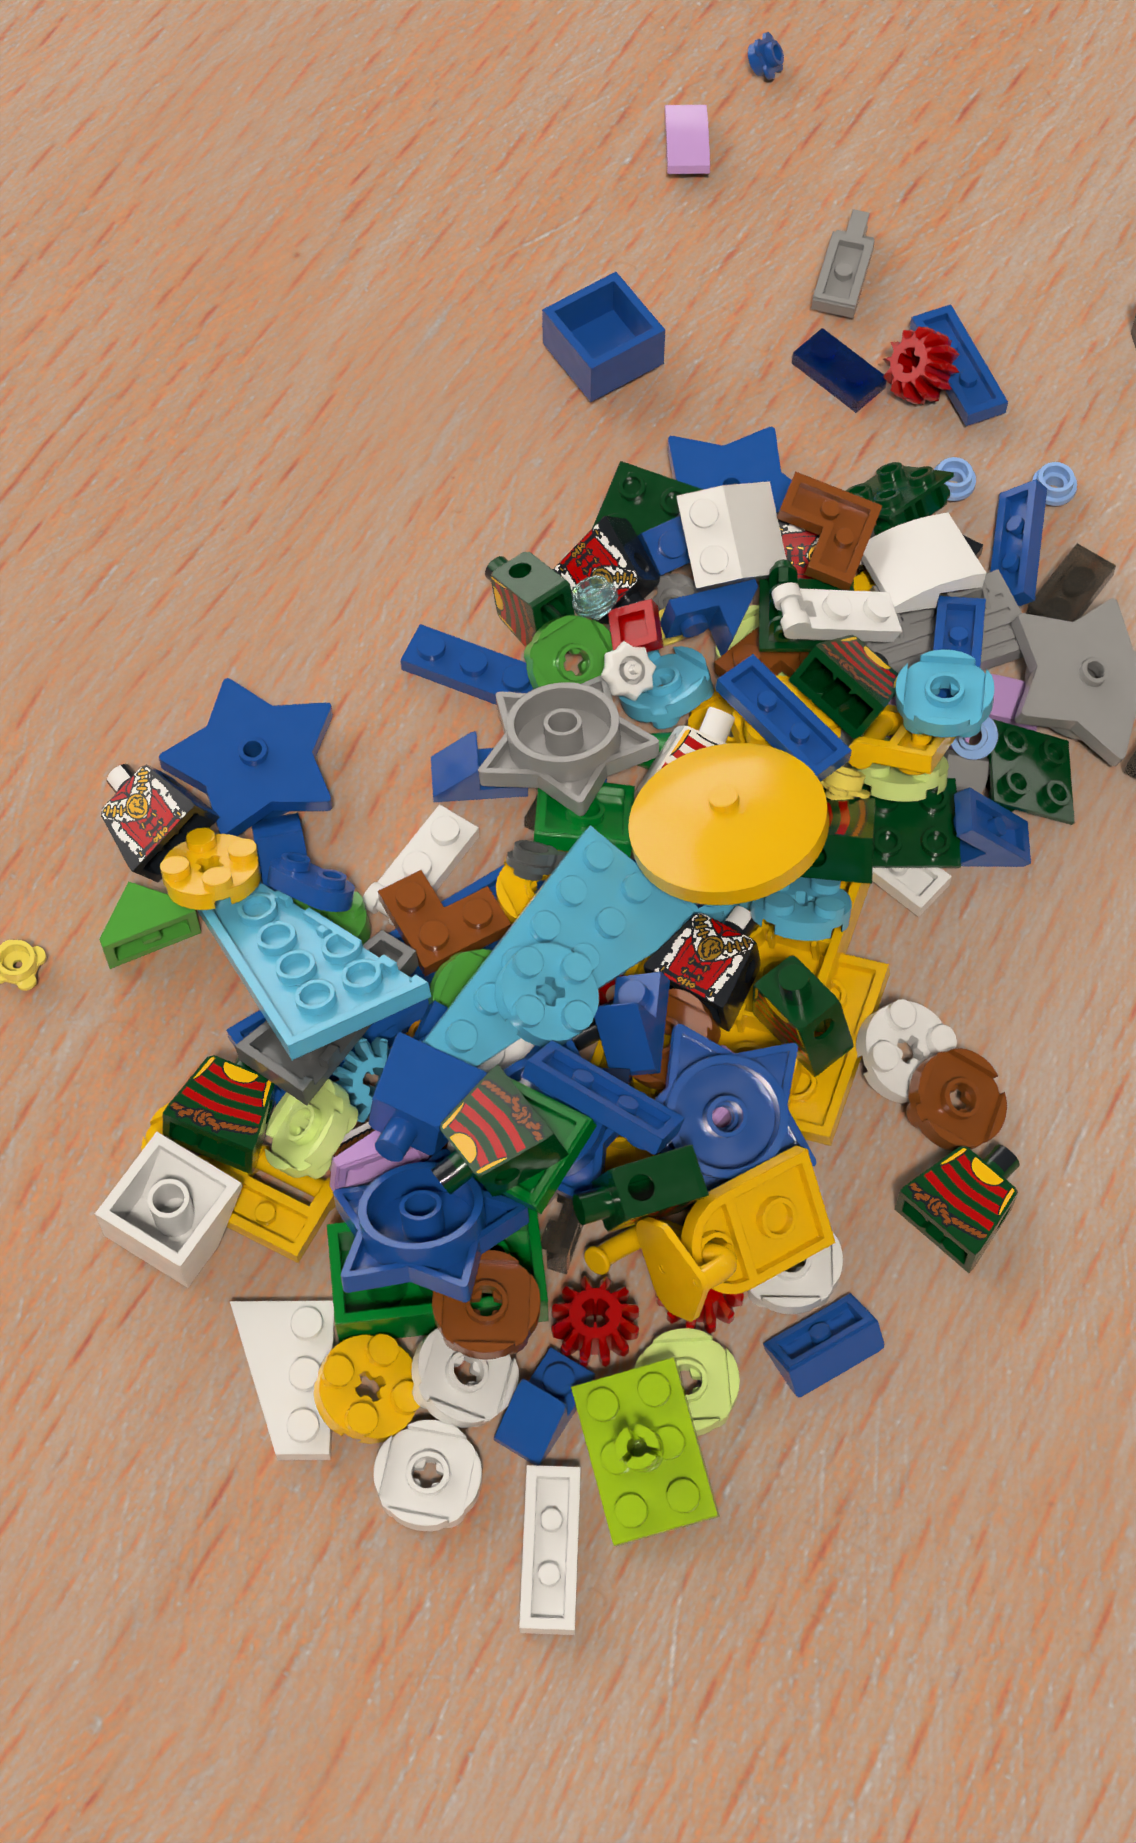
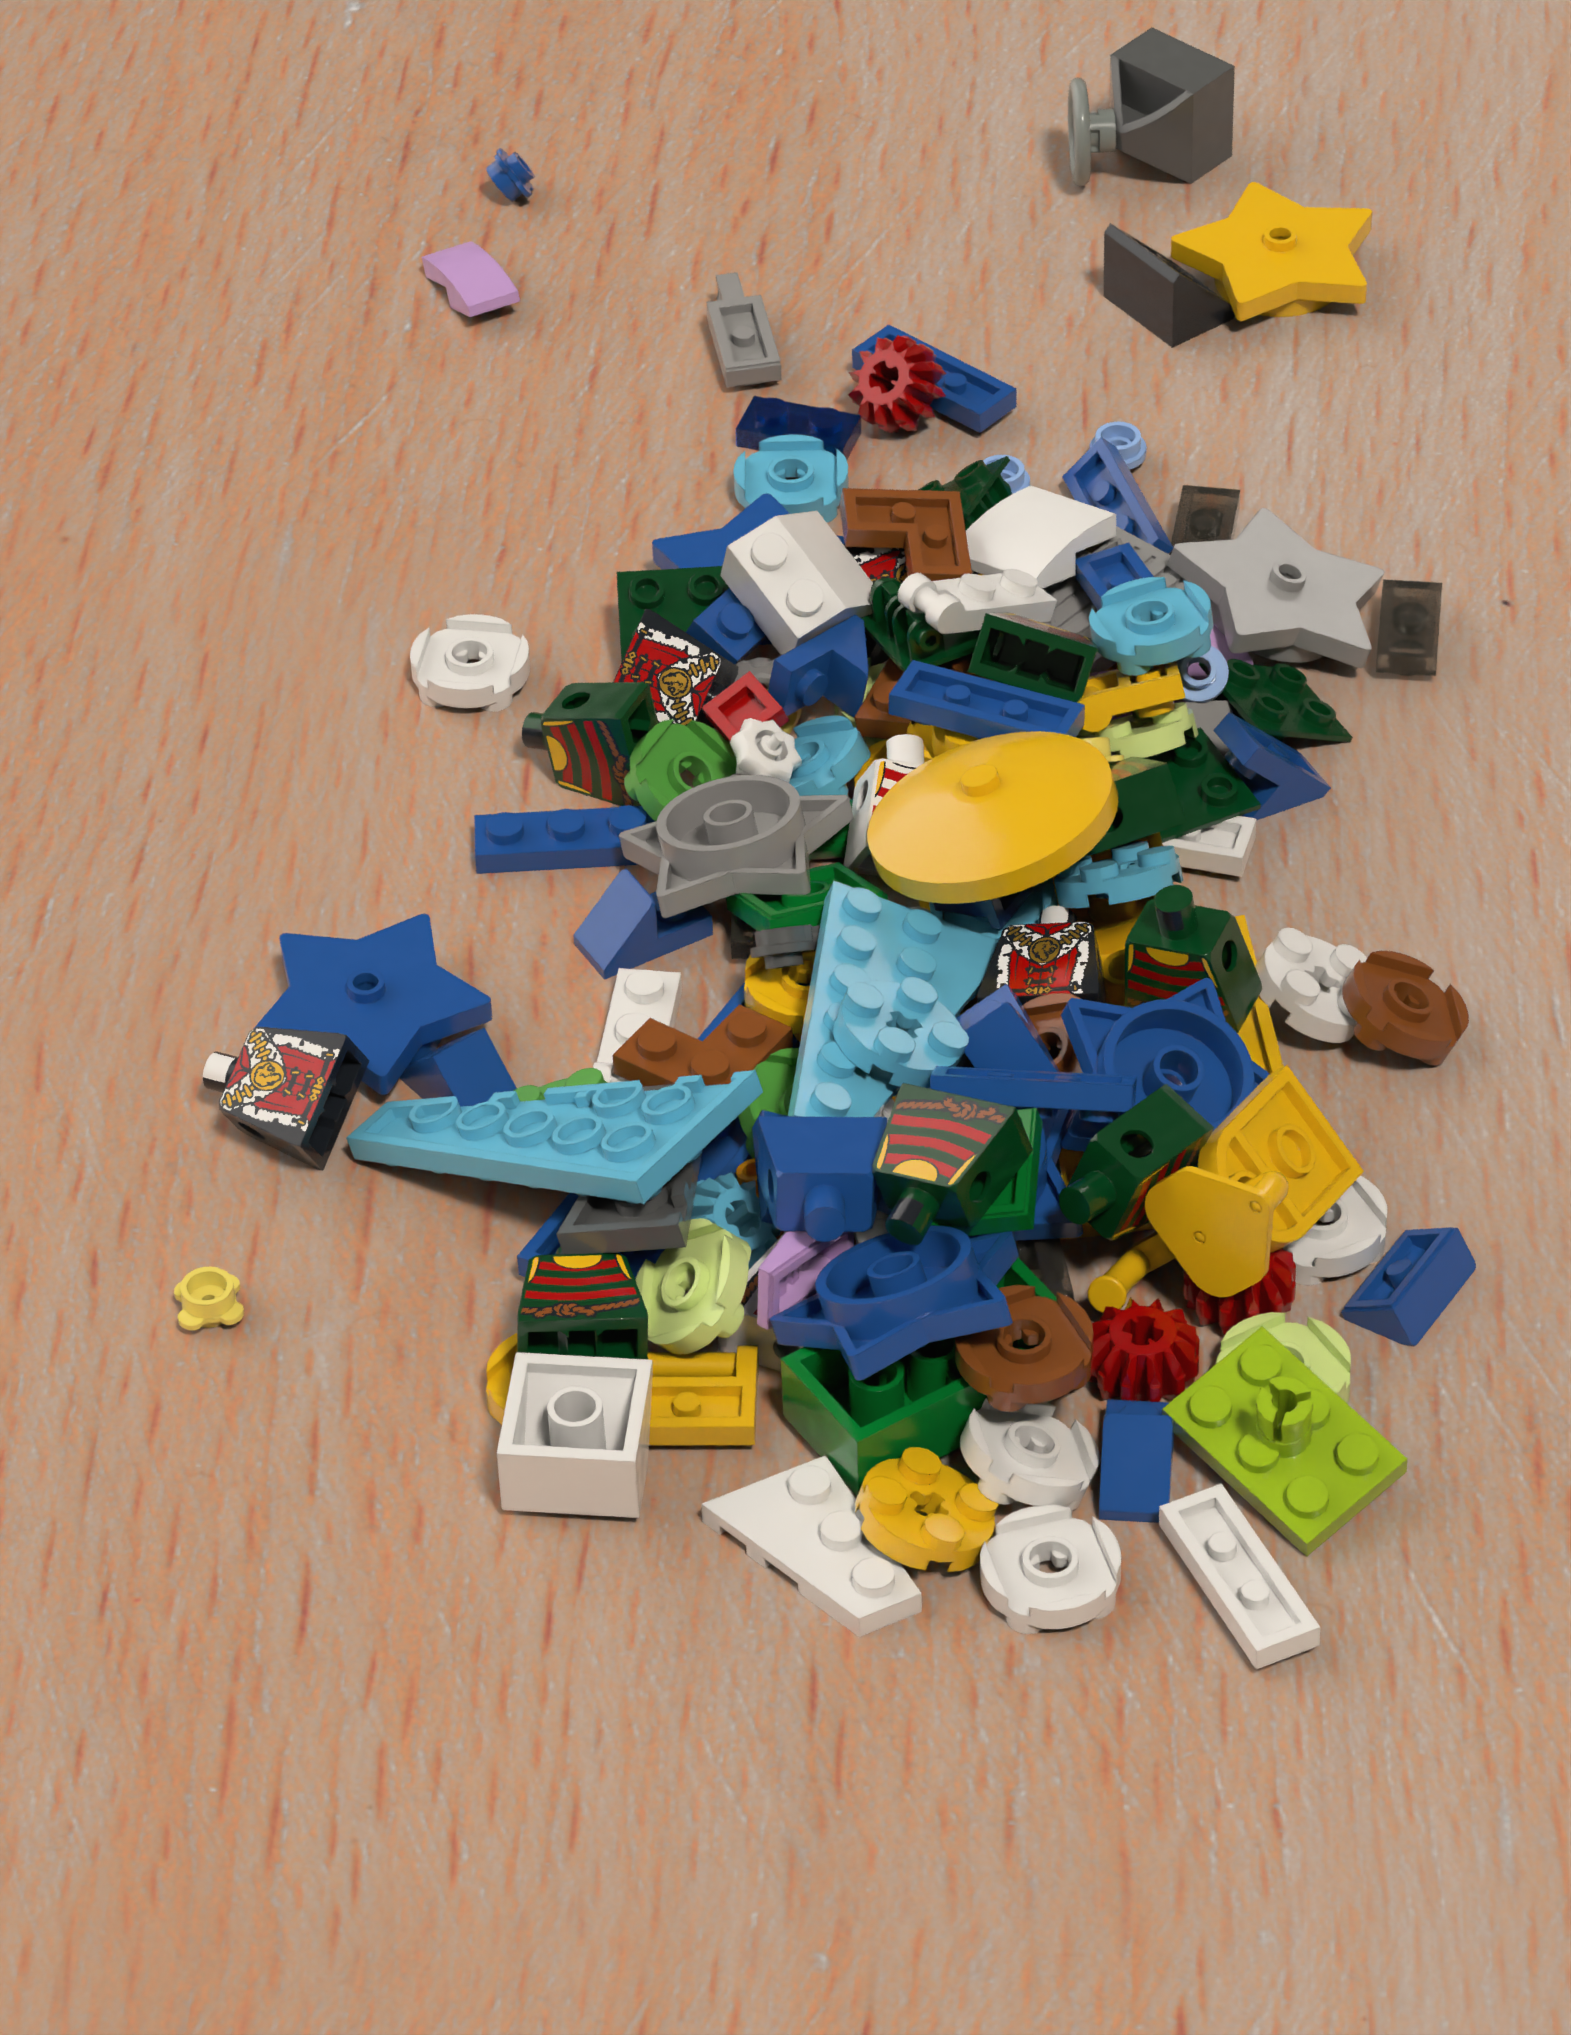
camera: 25 degrees left, 20 degrees down
(145, 923) = (351, 1196): bright green slope -> none
(210, 869) = (398, 1105): yellow plate -> none
(311, 884) = (556, 1064): blue plate -> none
(499, 507) = (448, 680): none -> white plate
(594, 597) = (680, 696): clear light blue plate -> none
(603, 336) = (508, 477): blue piece -> none
(806, 437) = (801, 456): none -> medium azure plate
(961, 1201) = (1470, 1098): torso -> none

